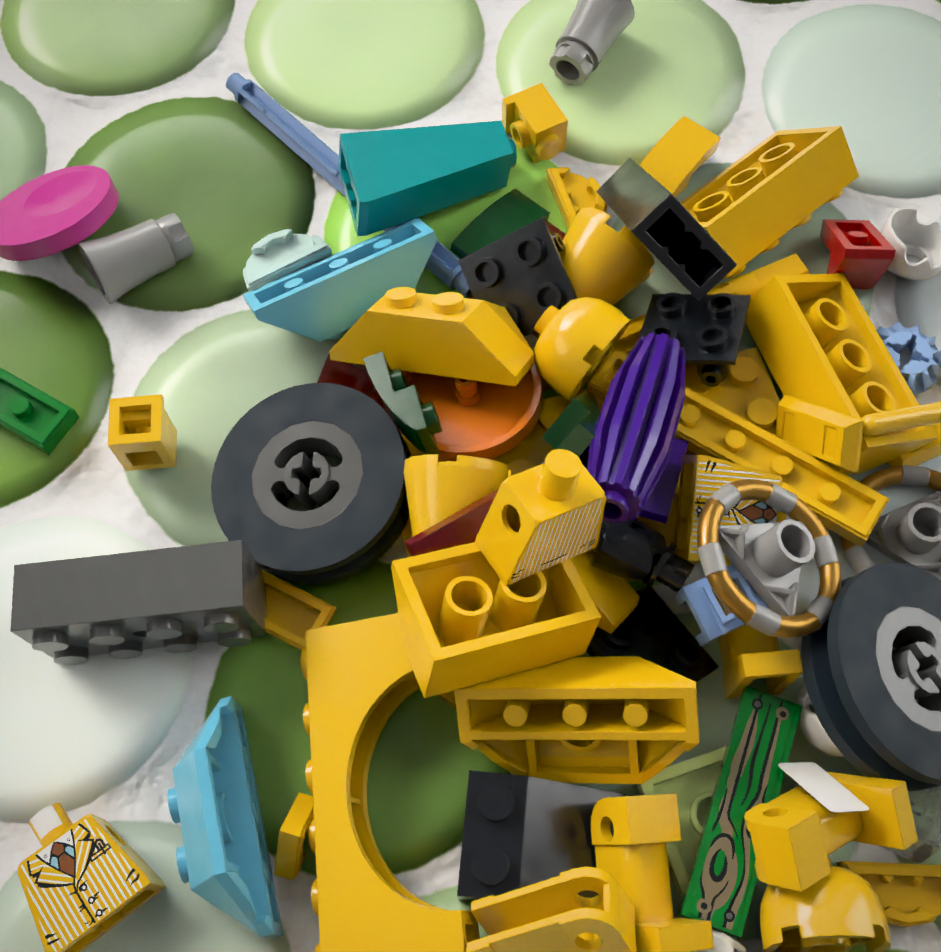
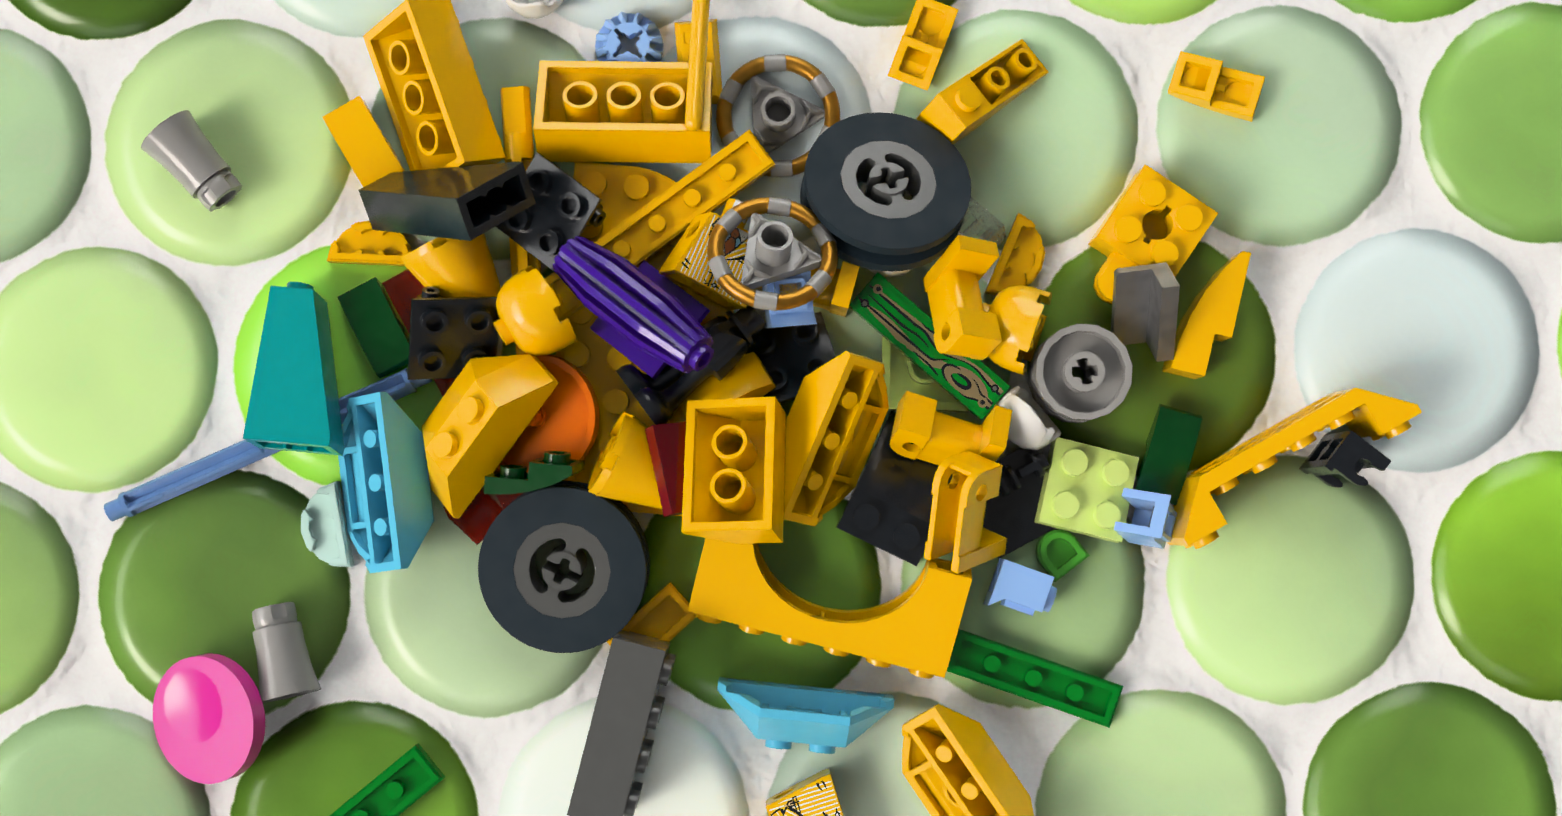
camera: 70 degrees left, 20 degrees up
(142, 433) = (468, 692): yellow brick -> none
(291, 837) = (830, 665): yellow tile -> none
(535, 122) = (277, 252): yellow brick -> none
(542, 517) = (689, 405): yellow torso -> none
(575, 425) = (611, 351): dark green slope -> none
(820, 432) = (676, 156): yellow tile -> none
(823, 787) = (939, 289): white sticker -> none
(856, 251) = (516, 36): red slope -> none

